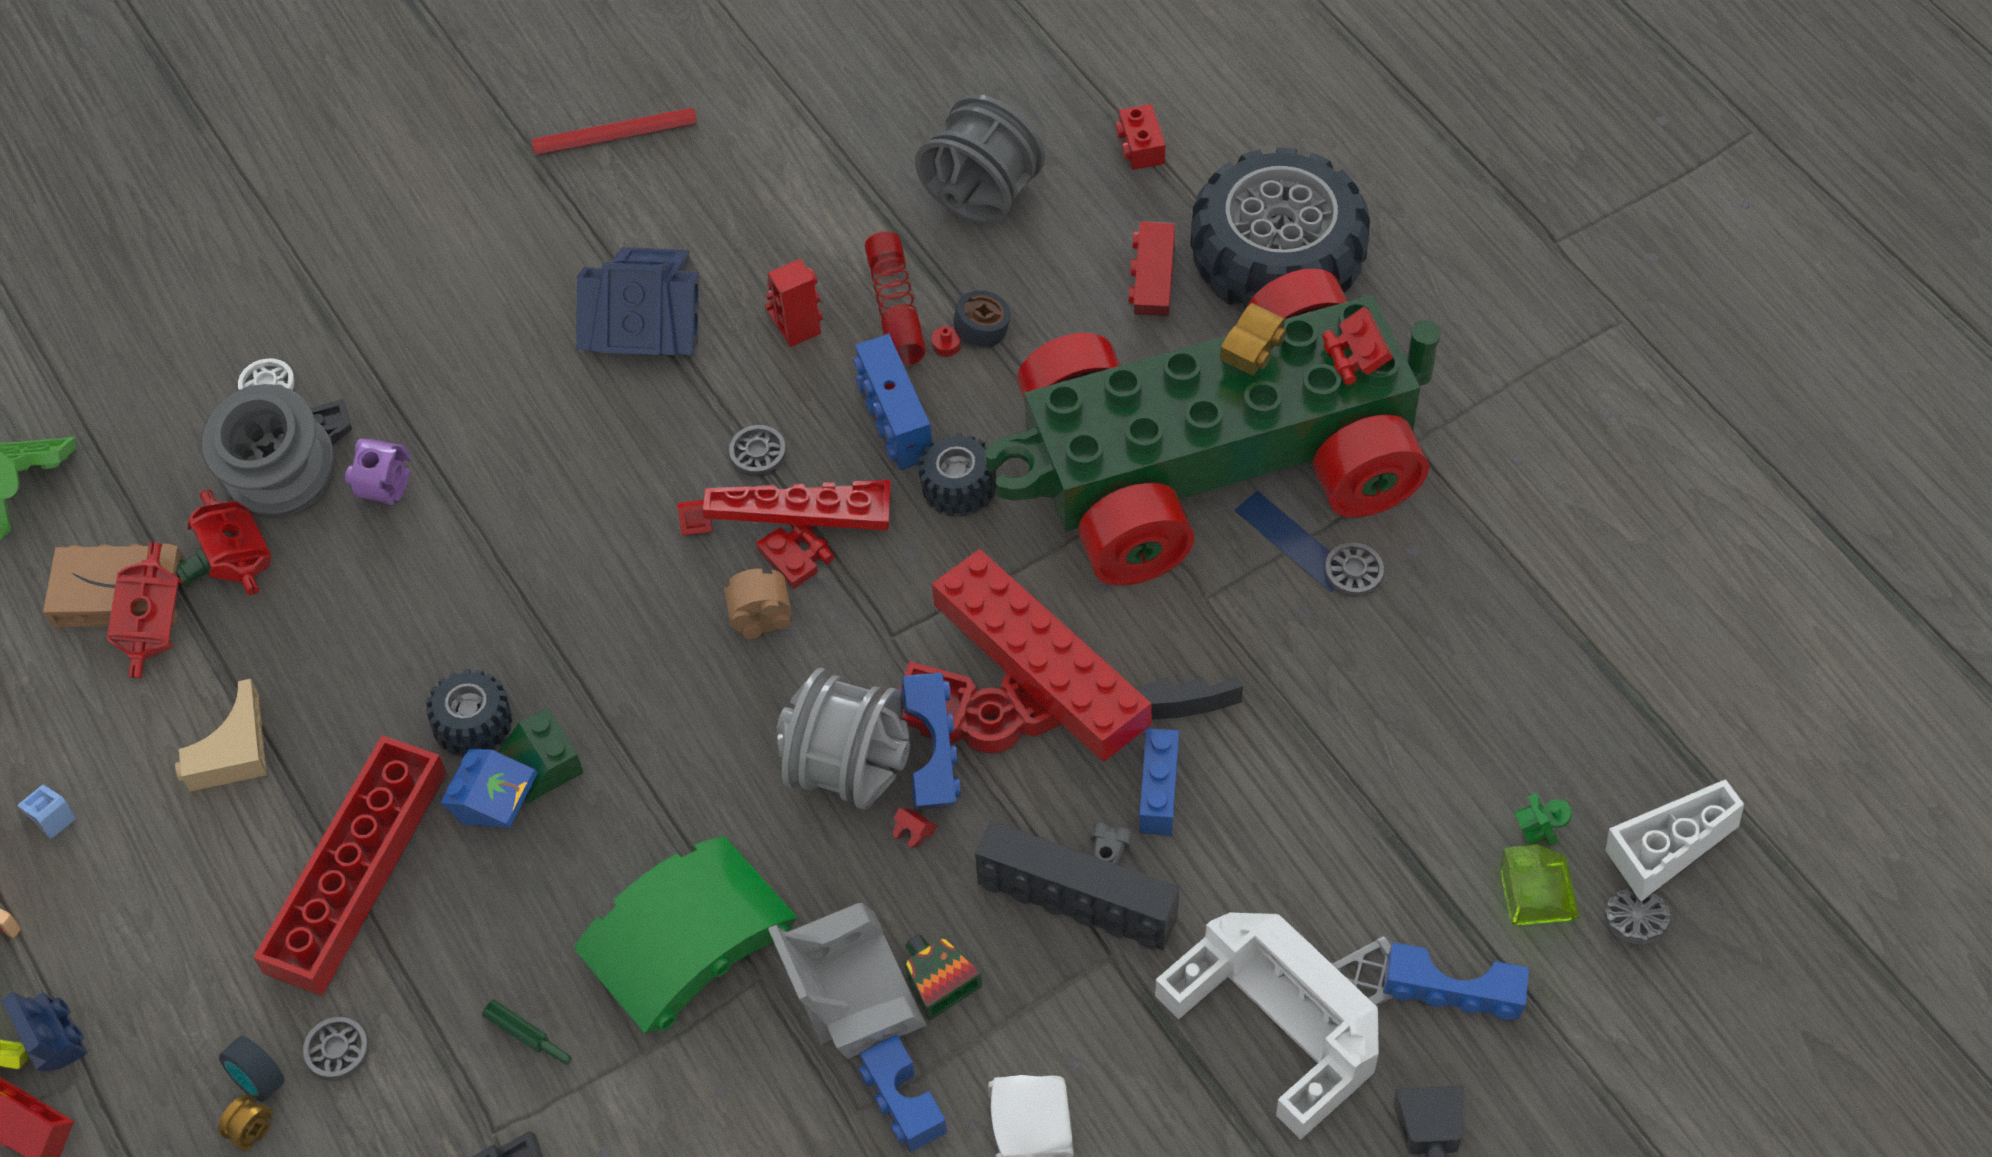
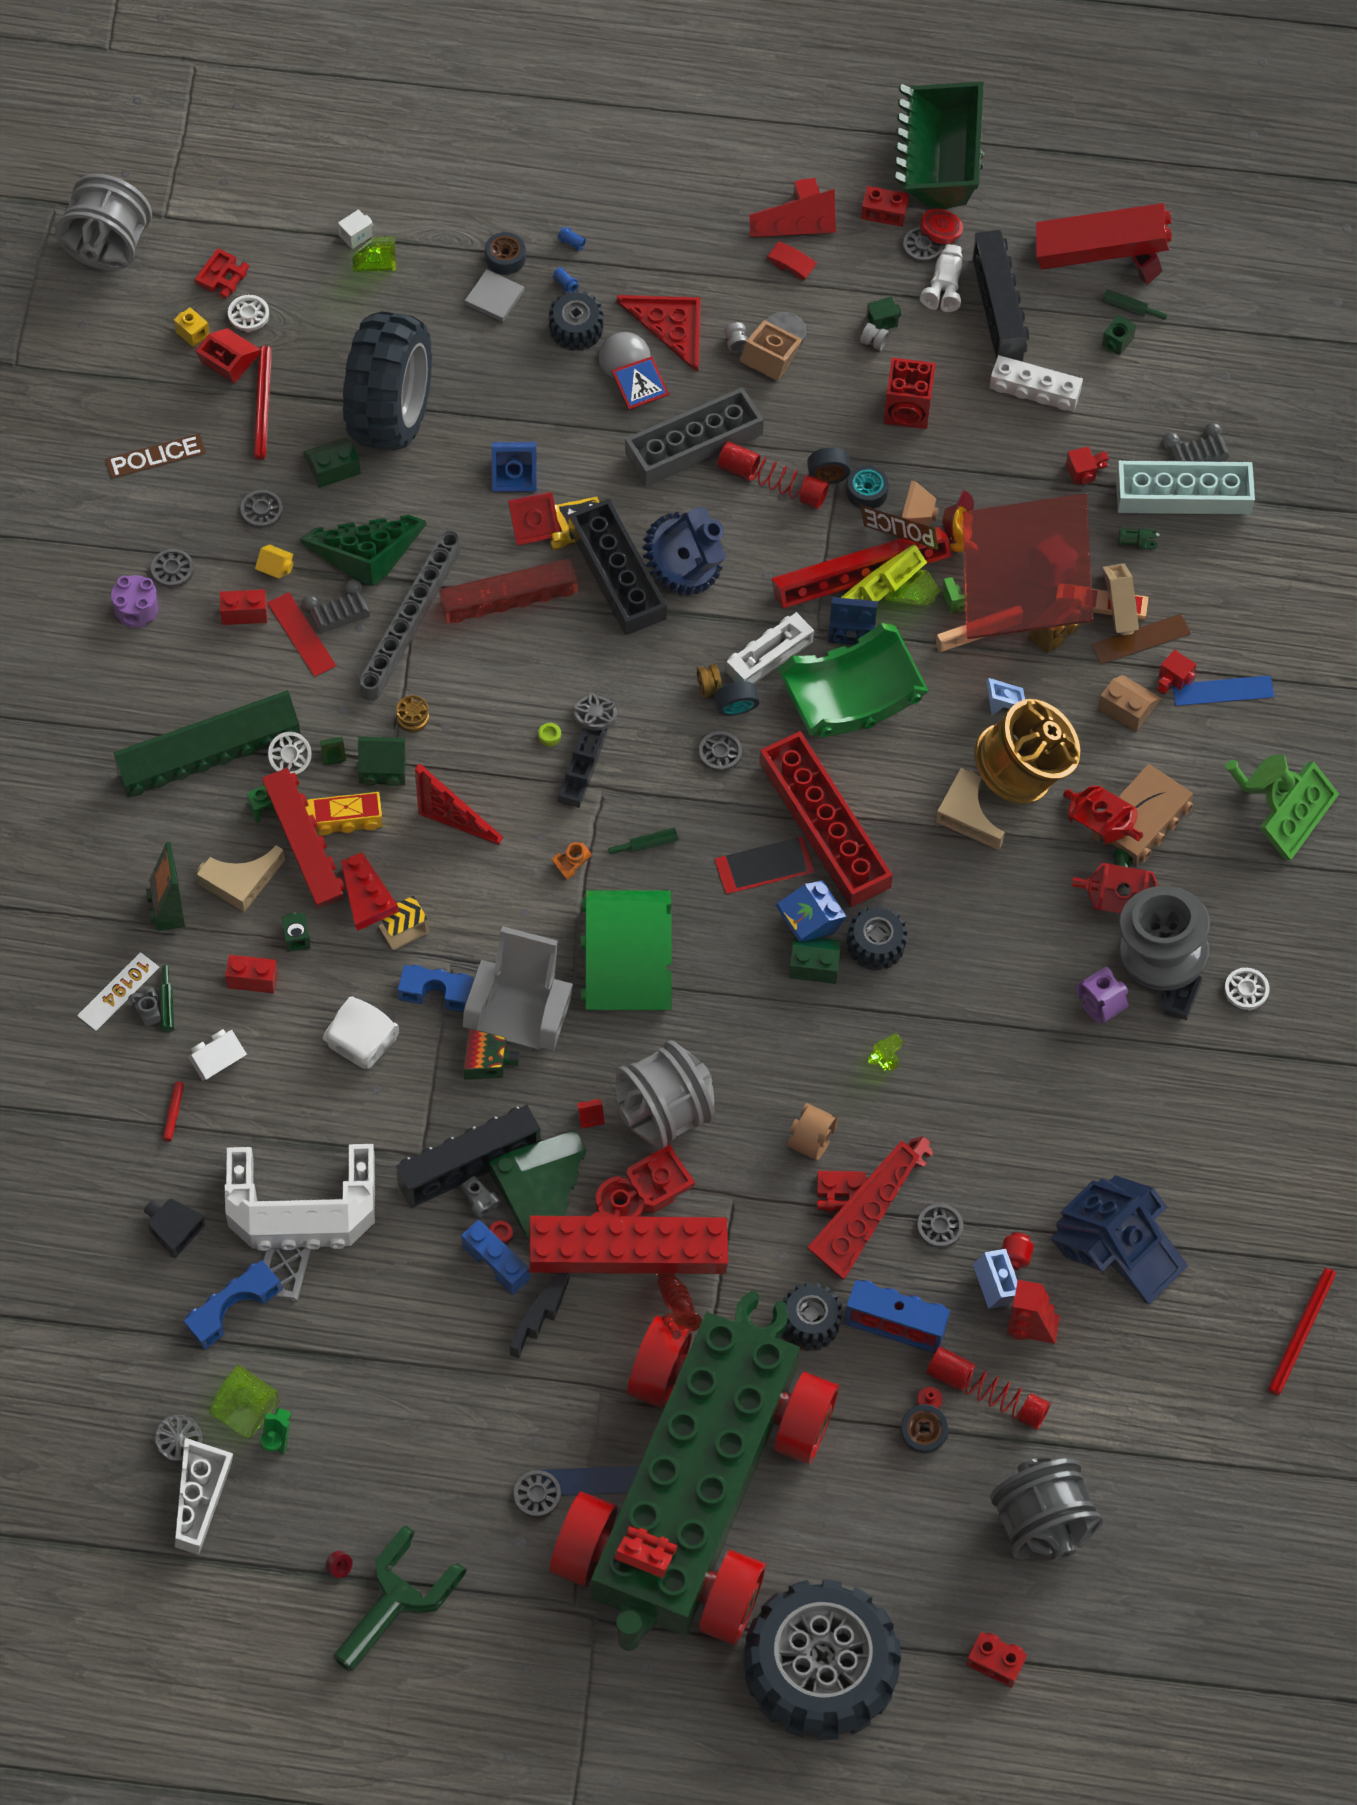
camera: 125 degrees right, 5 degrees up
(101, 1090) = (793, 628): none -> white brick
(118, 706) = (1043, 739): none -> pearl gold wheel
(135, 963) = (854, 684): none -> green panel
(457, 896) = (764, 865): none -> black sticker
(602, 620) = (884, 1052): none -> clear neon green piece
(621, 1087) = (568, 863): none -> orange plate
(731, 367) = (1018, 1249): none -> red head
(777, 358) = (996, 1278): none -> light blue brick
(925, 699) = (649, 1156): blue arch -> none
(1048, 804) = (539, 1177): none -> dark green slope
(1067, 541) = (679, 1301): none -> clear red piece
(1124, 807) = (503, 1231): none -> red tile
(1152, 268) = (870, 1563): red wedge -> none
(1252, 339) = (705, 1490): pearl gold brick -> none
(1575, 597) = (395, 1598): none -> dark green piece
(1598, 670) = (339, 1564): none -> dark red tile

